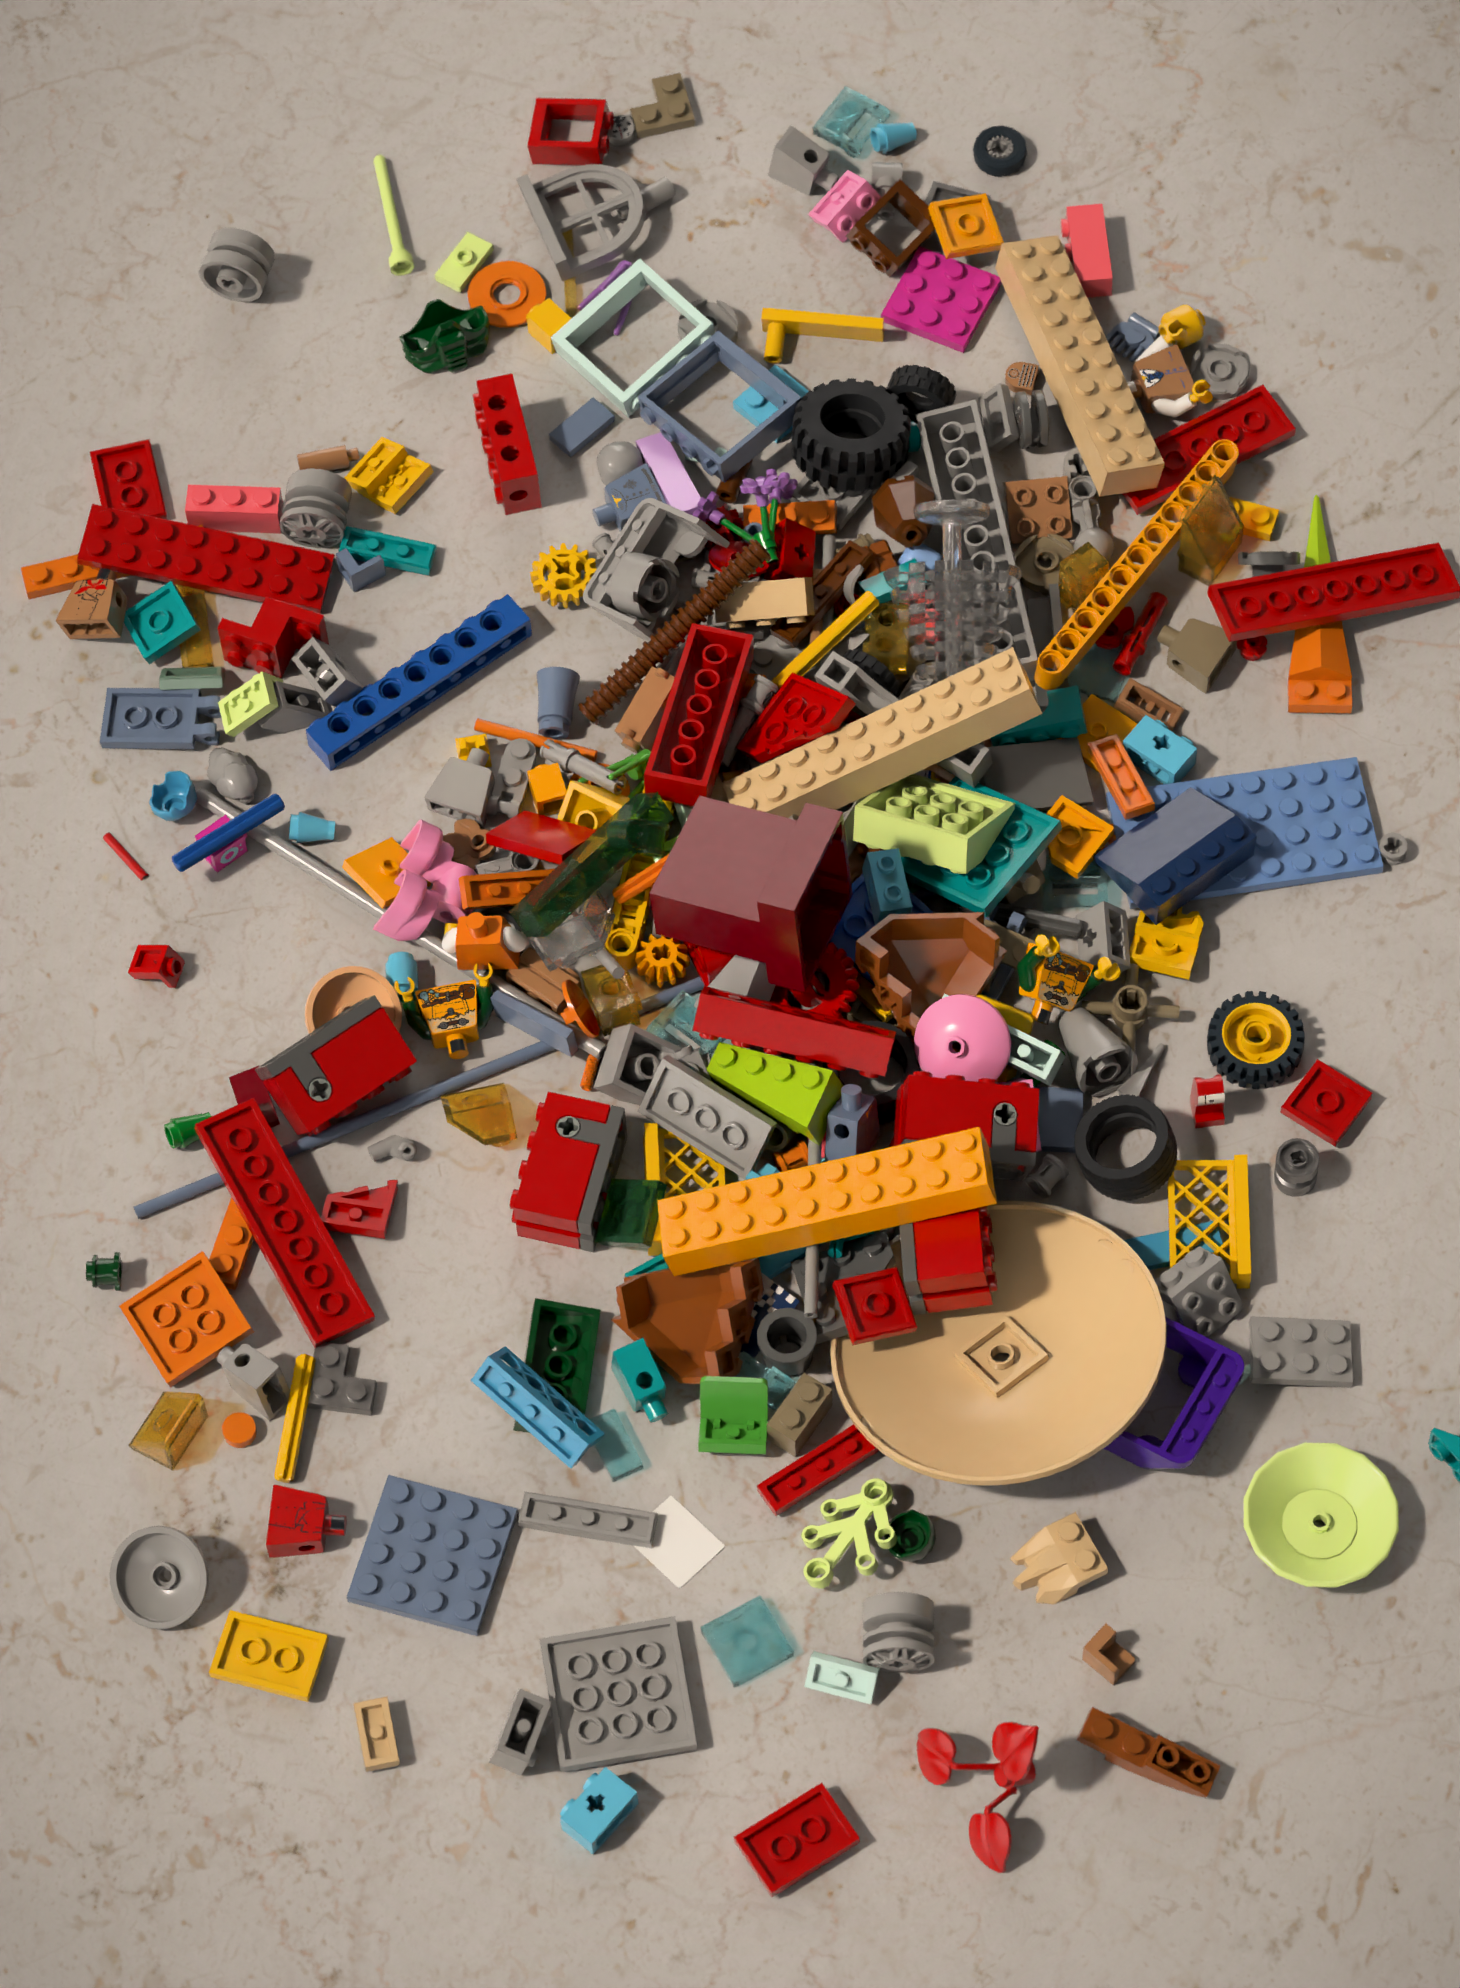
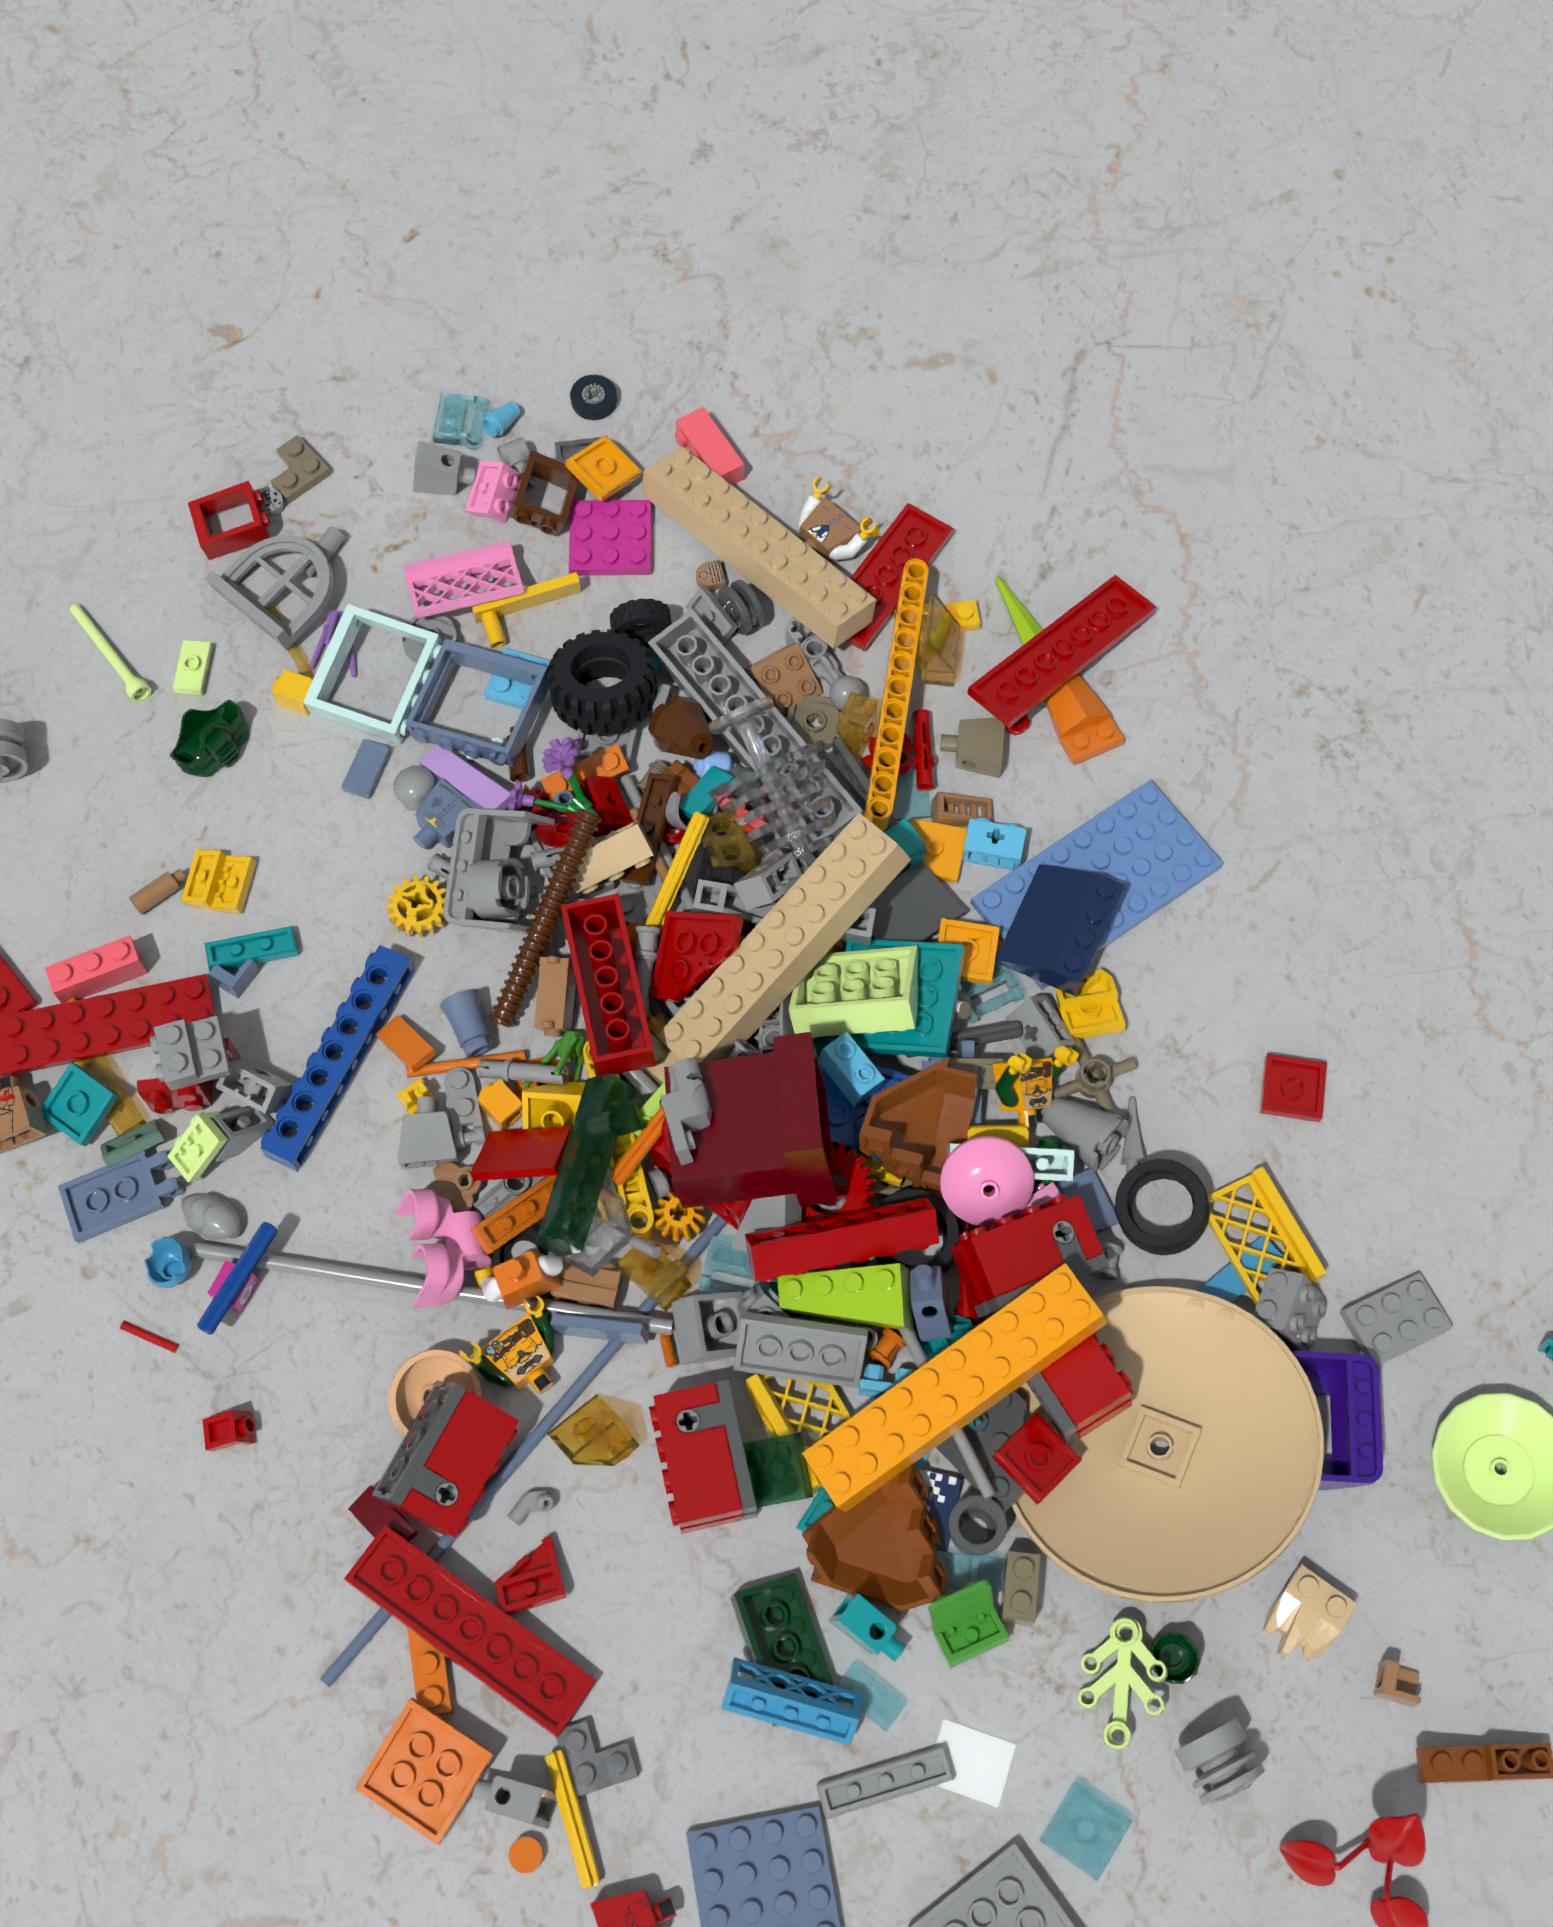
camera: 30 degrees left, 5 degrees up
(105, 1271) = (324, 1758): dark green brick -> none
(170, 1427) = (459, 1888): clear yellow slope -> none
(181, 1130) = (330, 1581): green cone -> none
(282, 612) = (190, 1052): none -> light grey plate
(310, 828) = (307, 1235): medium azure cone -> none
(315, 508) = (170, 939): light grey wheel -> none
(377, 870) = (389, 1248): light orange plate -> none
(399, 967) = (456, 1333): medium azure brick -> none
(488, 697) = (406, 1043): none -> orange tile
(506, 444) = (312, 811): red brick -> none
(507, 272) = (249, 659): orange piece -> none
(579, 1009) = (636, 1301): piece -> none
(695, 833) = (686, 1106): none -> light grey plate
(763, 268) = (460, 569): none -> bright pink fence
(815, 1469) = (1058, 1634): red plate -> none
(842, 1677) = (1189, 1825): light aqua plate -> none
(897, 679) = (768, 881): none -> light grey brick
(1121, 776) = (978, 880): orange tile -> none
(1136, 336) = (784, 503): sand blue piece -> none
(1190, 320) = (815, 469): yellow head -> none
(1207, 1101) = (1201, 1131): red leg -> none
(1222, 368) = (865, 501): light grey tile -> none
(1250, 1061) = (1200, 1079): wheel -> none
(1268, 561) = (995, 647): dark grey tile -> none
(1296, 1167) = (1305, 1157): flat silver wheel -> none
(1396, 840) = (1224, 836): light grey bush -> none

